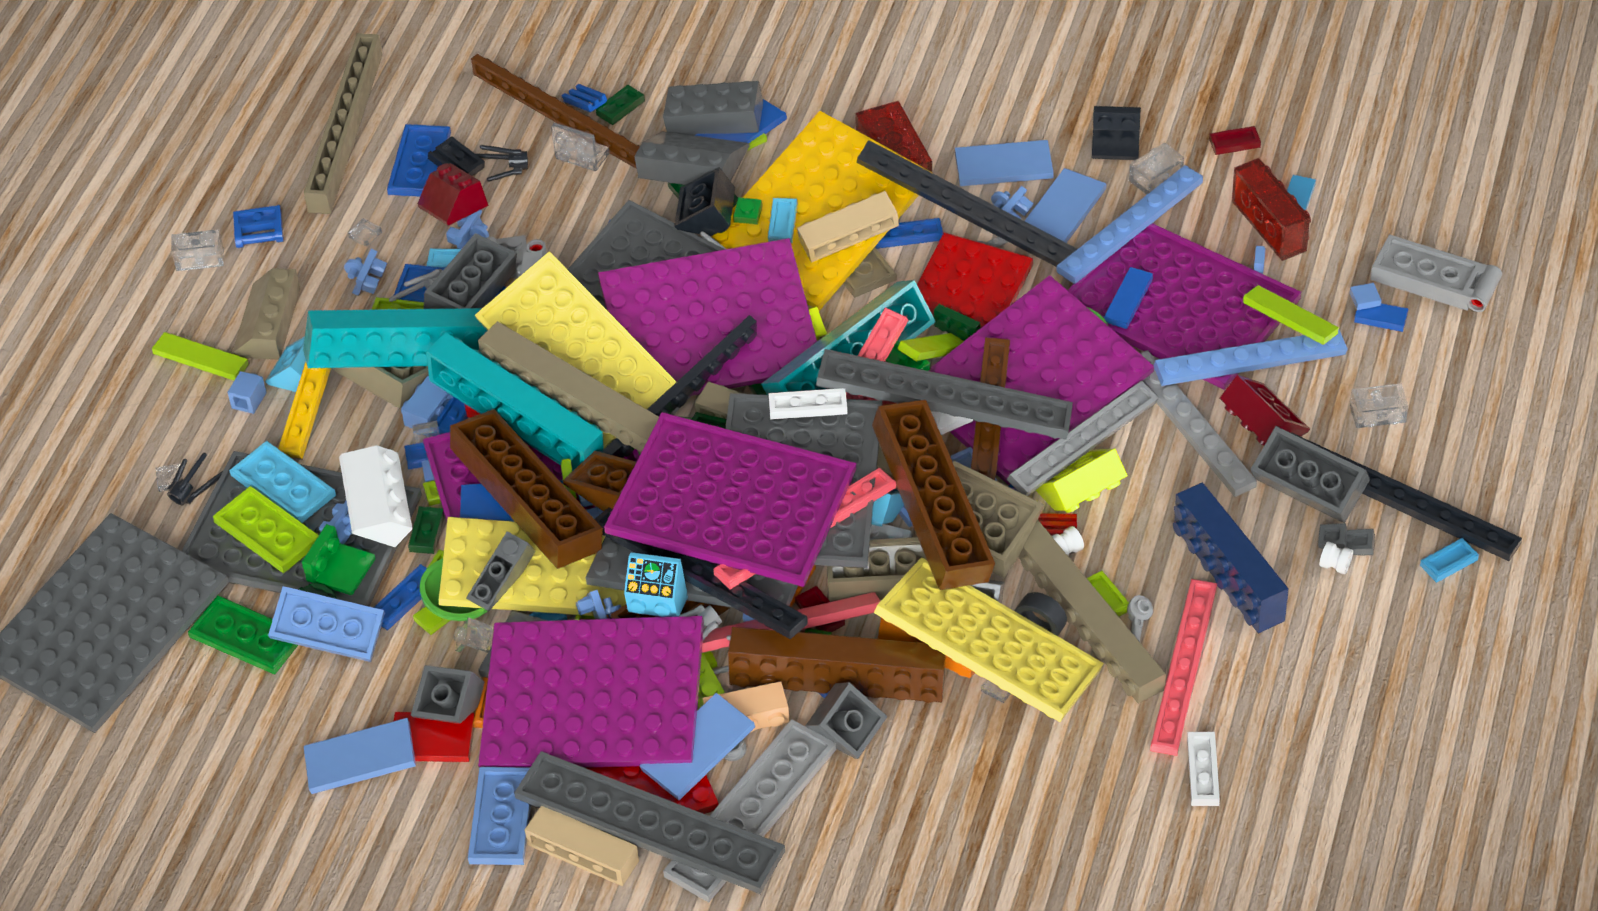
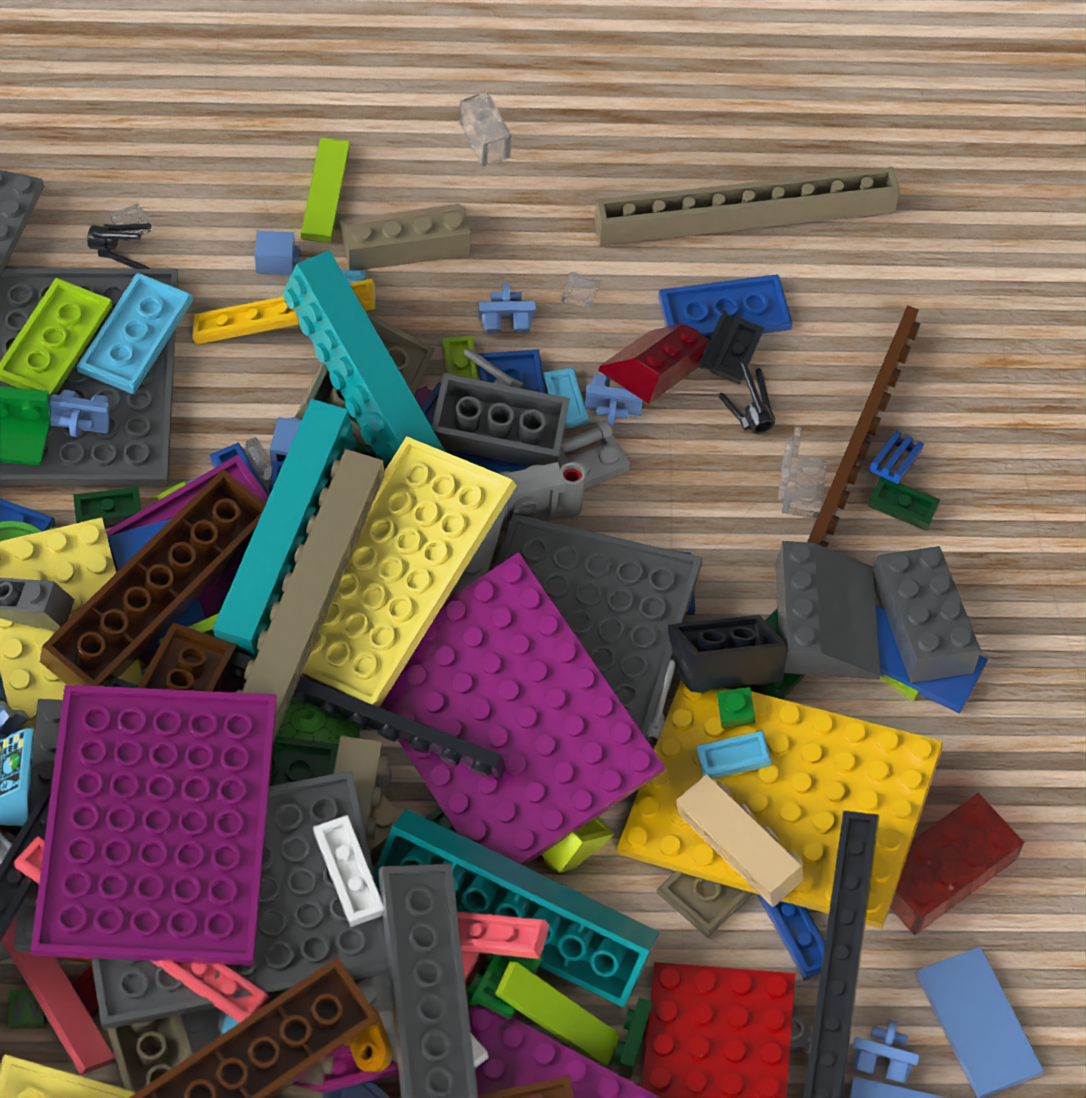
camera: 65 degrees right, 10 degrees up
(258, 220) = (558, 173): blue plate -> none
(376, 494) = (117, 428): white slope -> none

